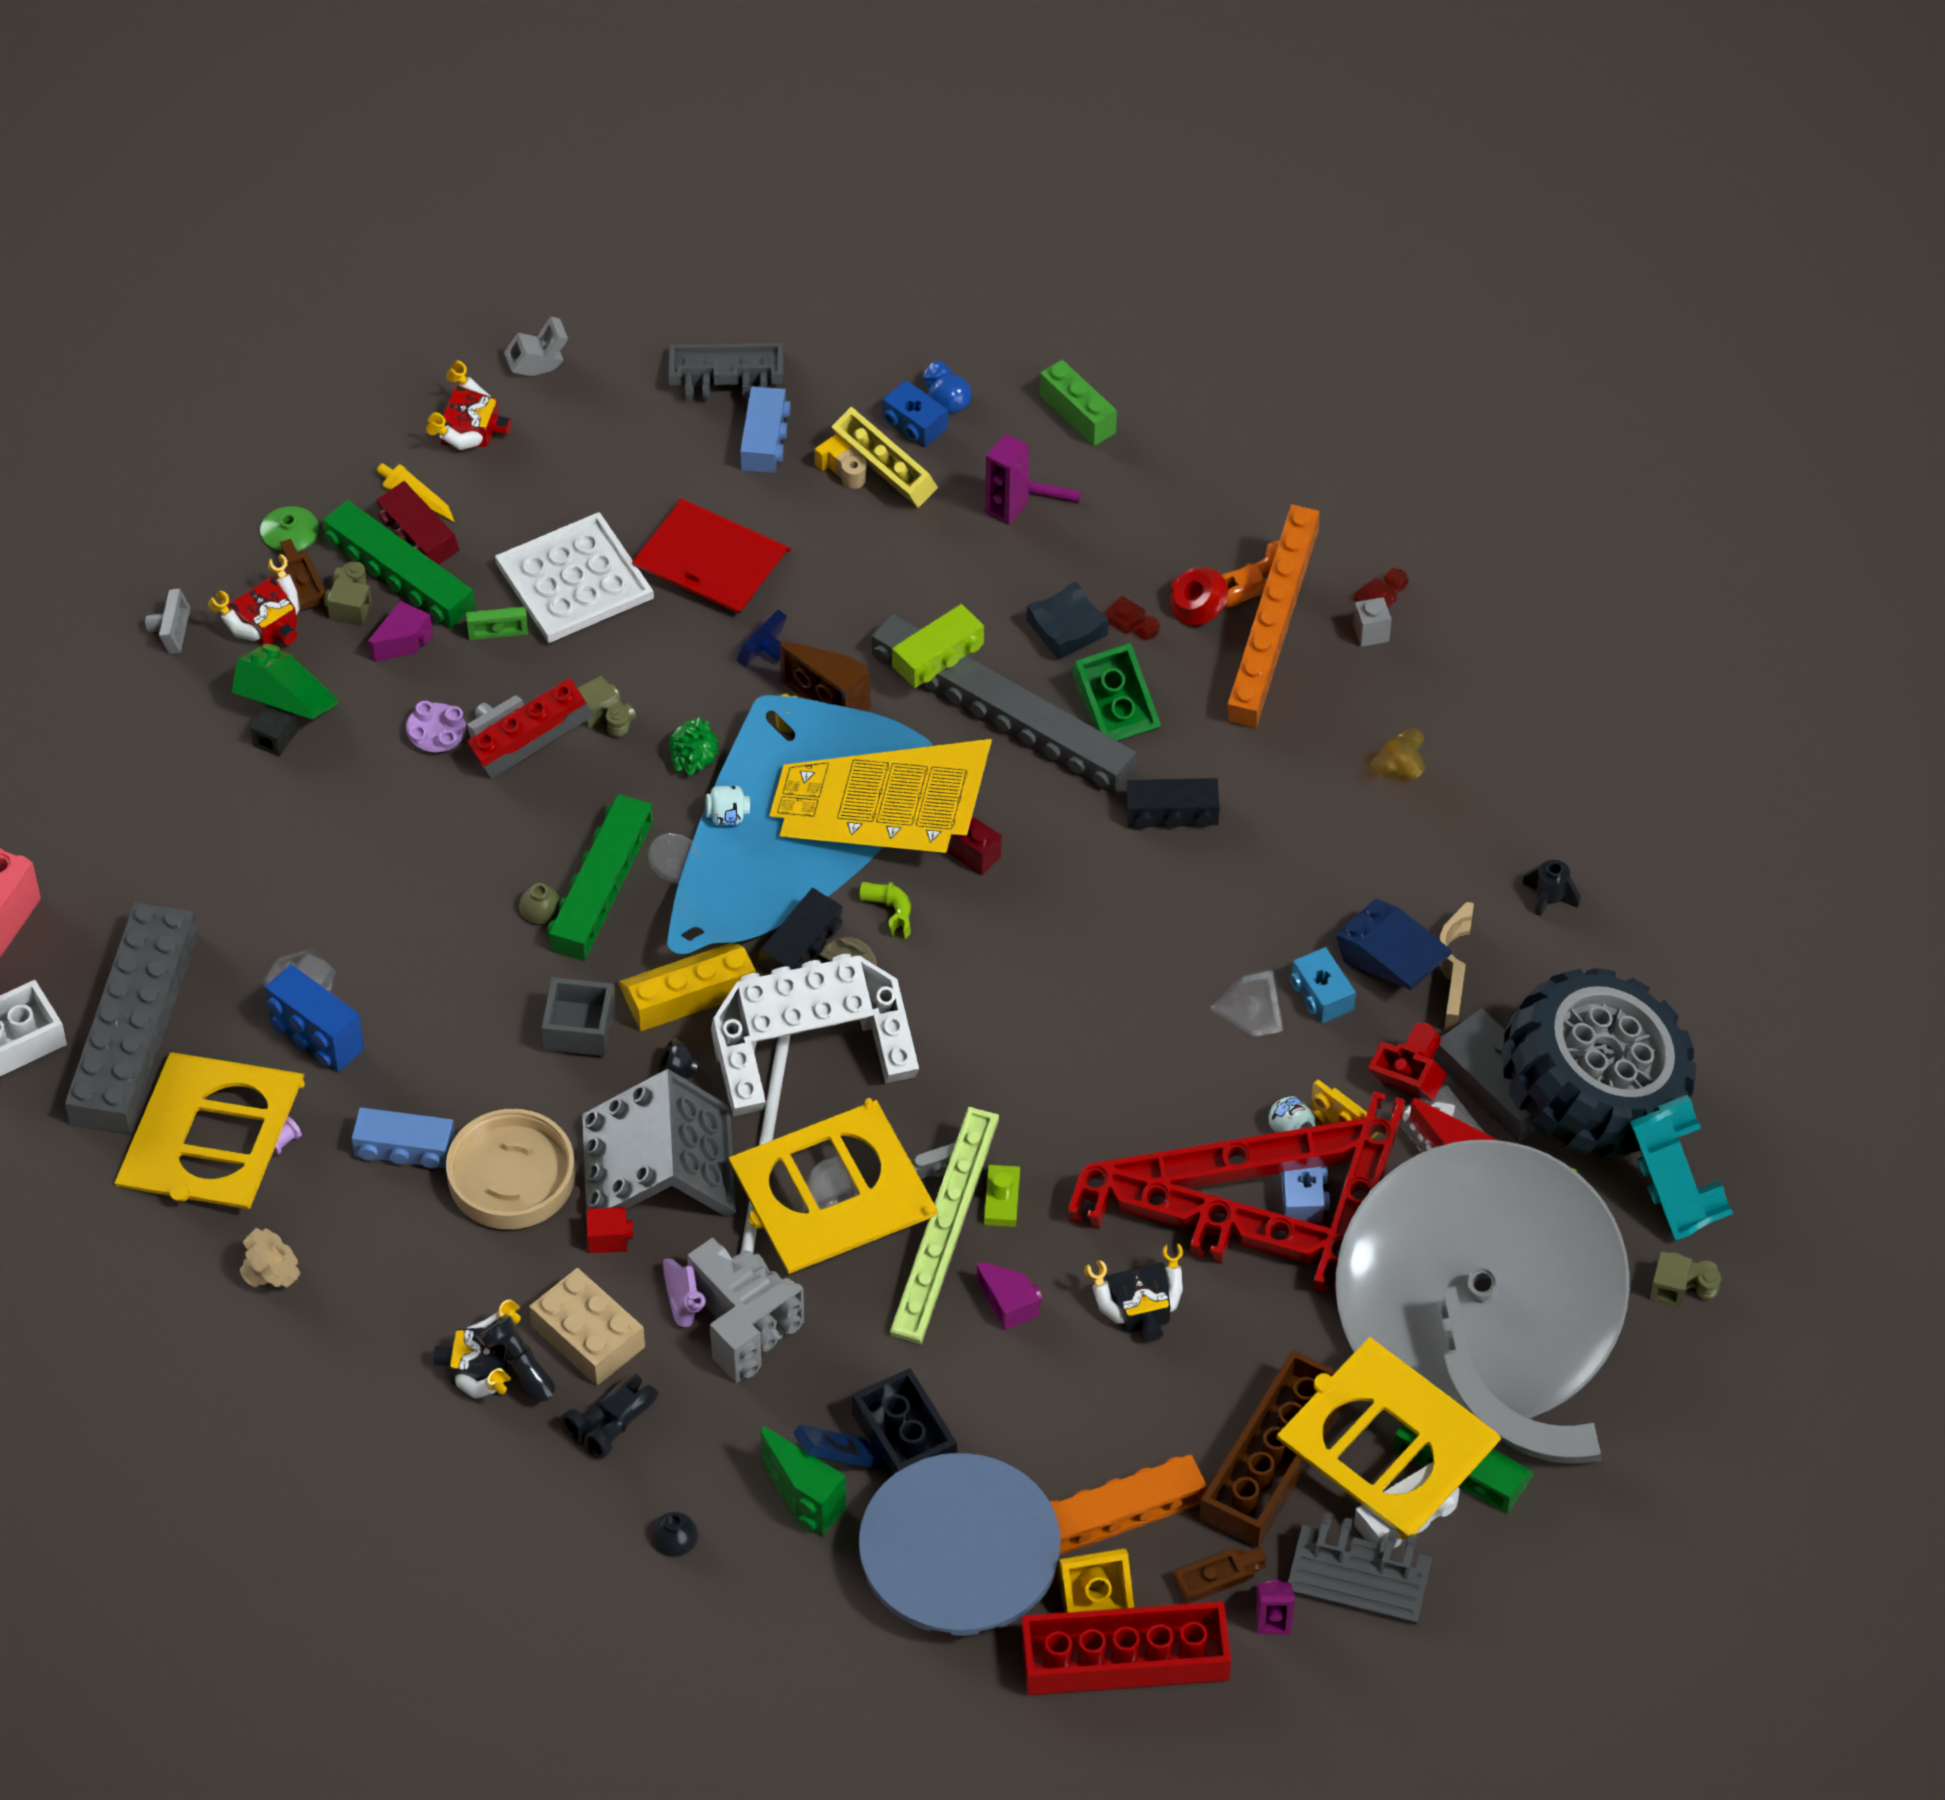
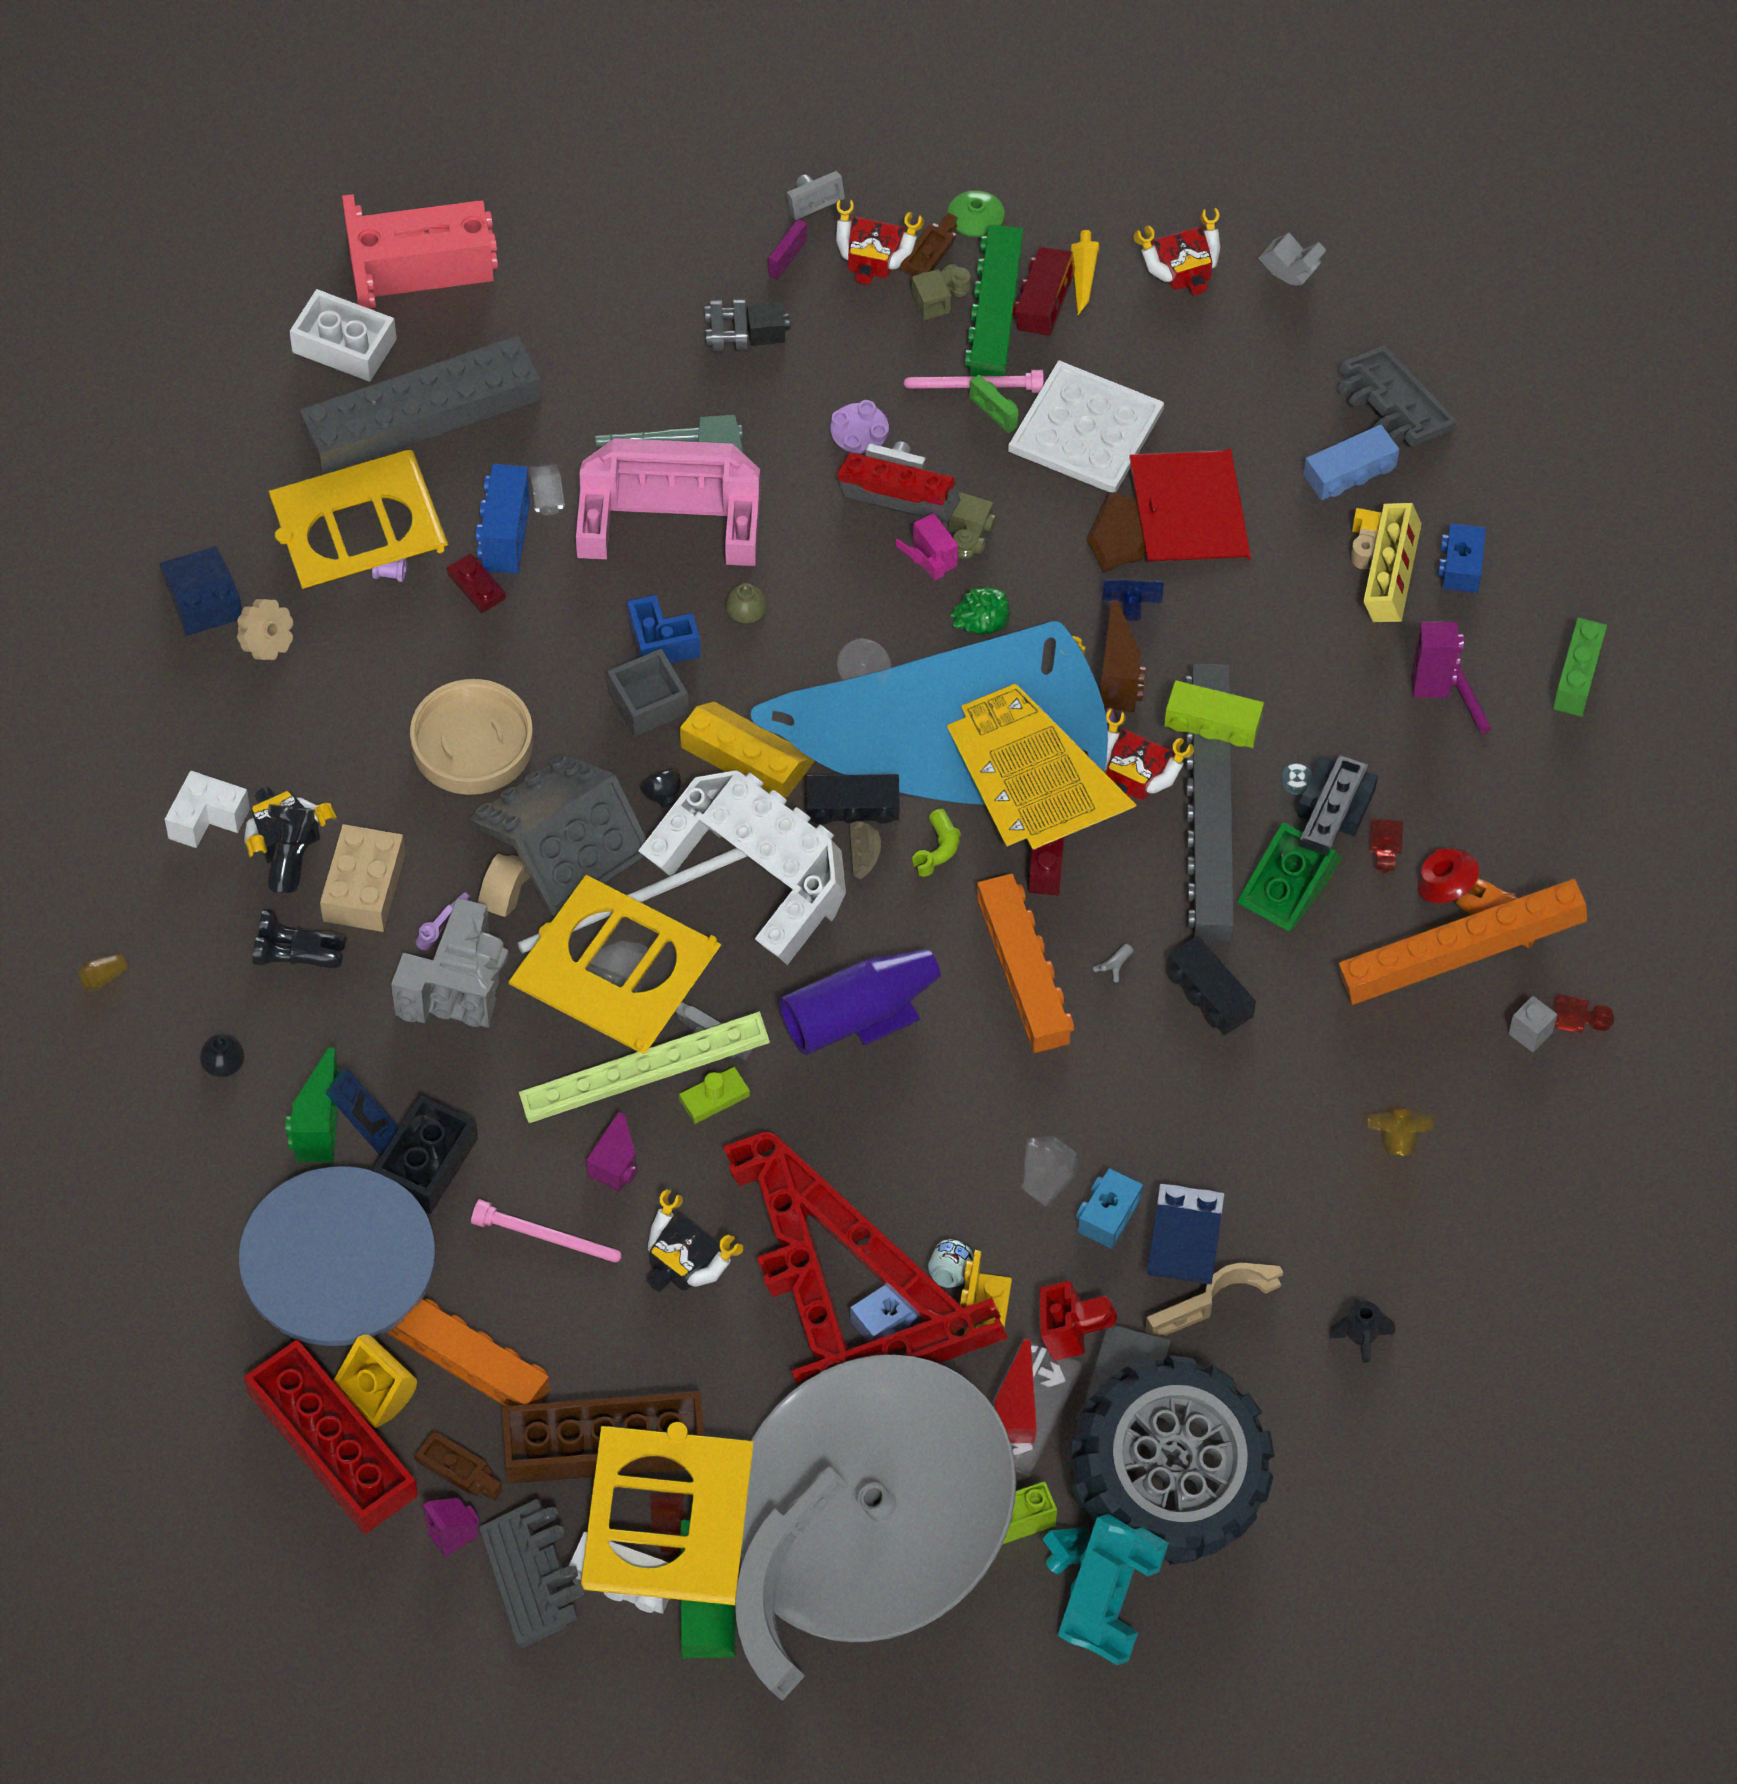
camera: 55 degrees right, 5 degrees up
(177, 1287) = (202, 590): none -> dark blue slope
(211, 671) = (787, 249): none -> magenta tile
(250, 756) = (716, 314): none -> dark grey brick
(281, 682) = (806, 299): green slope -> none
(349, 1083) = (476, 583): none -> dark red plate
(352, 829) = (711, 430): none -> sand green piece
(384, 876) = (673, 480): none -> bright pink wedge
(400, 633) = (928, 346): magenta slope -> none
(402, 1137) = (444, 644): medium blue brick -> none
(409, 1406) = (202, 803): none -> white brick
(497, 585) = (1032, 381): none -> bright pink piece
(515, 1579) = (101, 971): none -> clear yellow cone
(528, 980) = (650, 632): none -> blue brick
(600, 877) = (801, 626): green brick -> none
(602, 744) = (933, 547): none -> dark pink piece
(608, 1230) = (465, 837): red brick -> none
(681, 1223) = (503, 884): none -> tan brick
(691, 617) = (1117, 533): none -> reddish brown tile
(727, 805) = (939, 667): light aqua head -> none
(937, 720) = (1140, 764): none -> torso
(947, 388) = (1513, 567): blue hair -> none
(990, 1421) = (485, 1215): none -> bright pink piece
(1008, 1037) = (860, 999): none -> dark purple piece
(1024, 639) = (1296, 778): none -> clear light blue tile
(1051, 912) = (1024, 963): none -> orange brick
(1087, 620) = (1333, 805): none -> tile
(1096, 853) = (1115, 962): none -> light grey bar
(1373, 1448) = (666, 1516): none -> clear red plate
(1611, 1184) = (1066, 1547): none -> teal tile
(1678, 1274) = (1017, 1654): olive brick -> none

